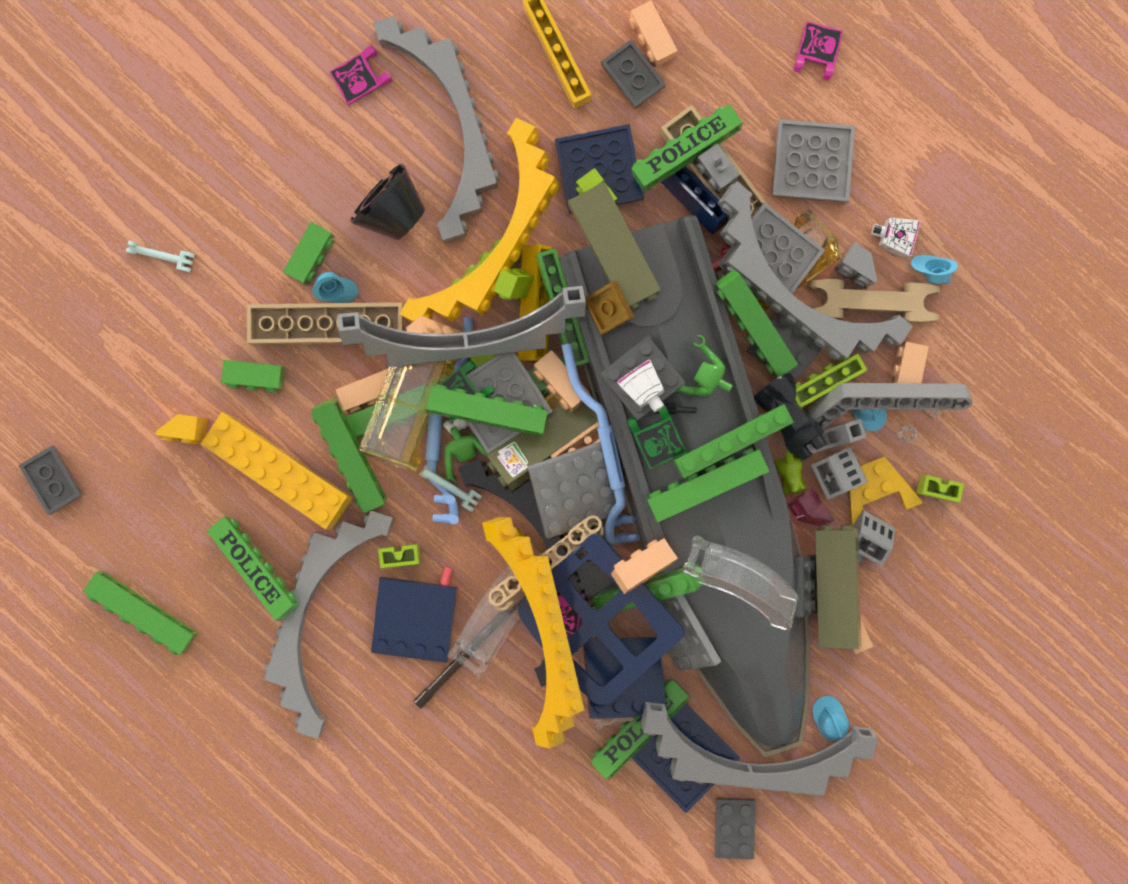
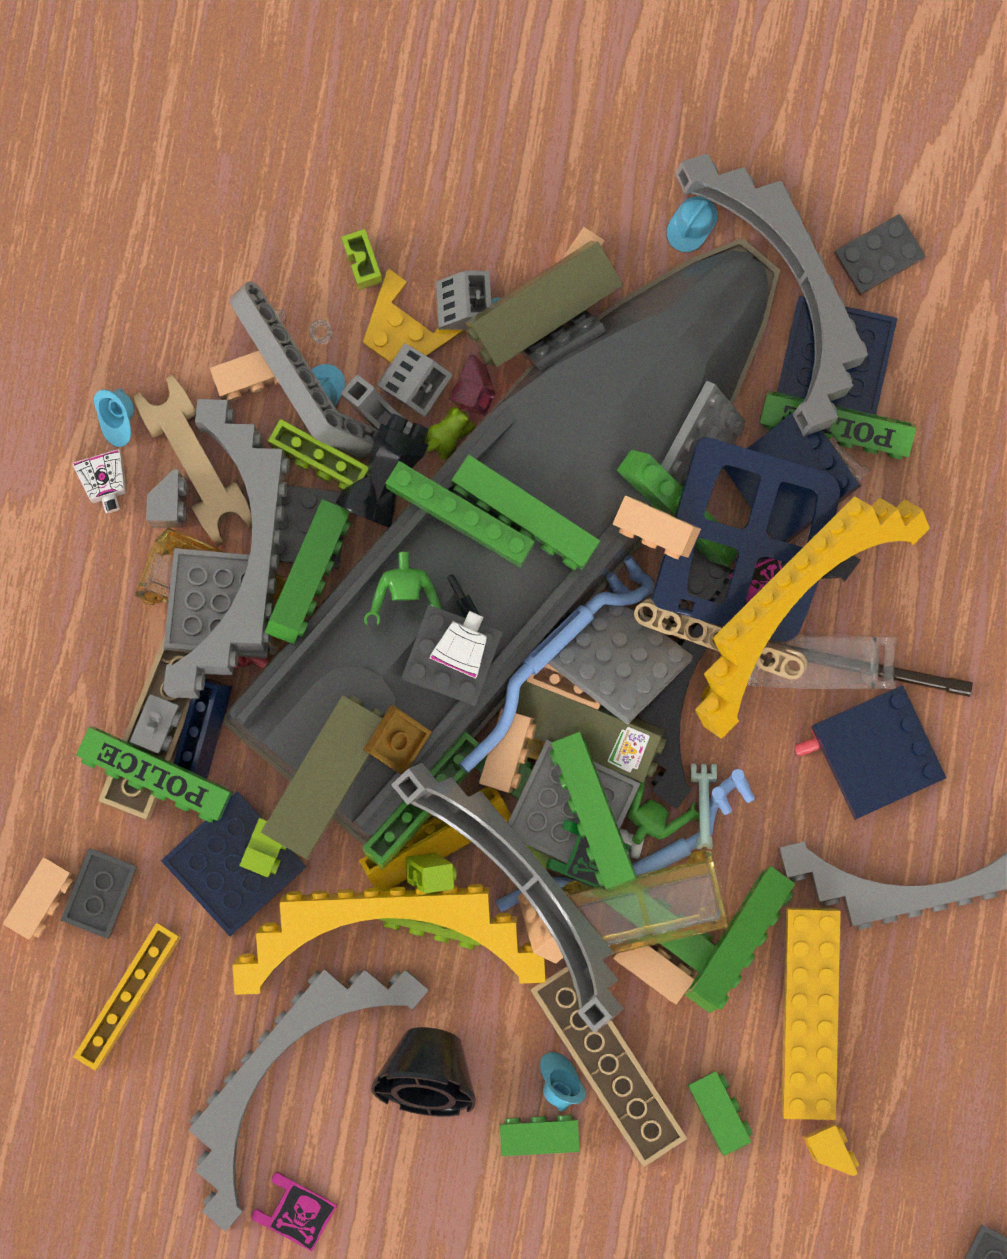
camera: 120 degrees left, 5 degrees down
(253, 568) = (937, 969): bright green brick -> none
(391, 557) = (814, 804): lime brick -> none
(659, 440) = (510, 595): flag -> none
(745, 579) = (602, 410): clear windscreen -> none
(813, 161) = (74, 625): light grey plate -> none

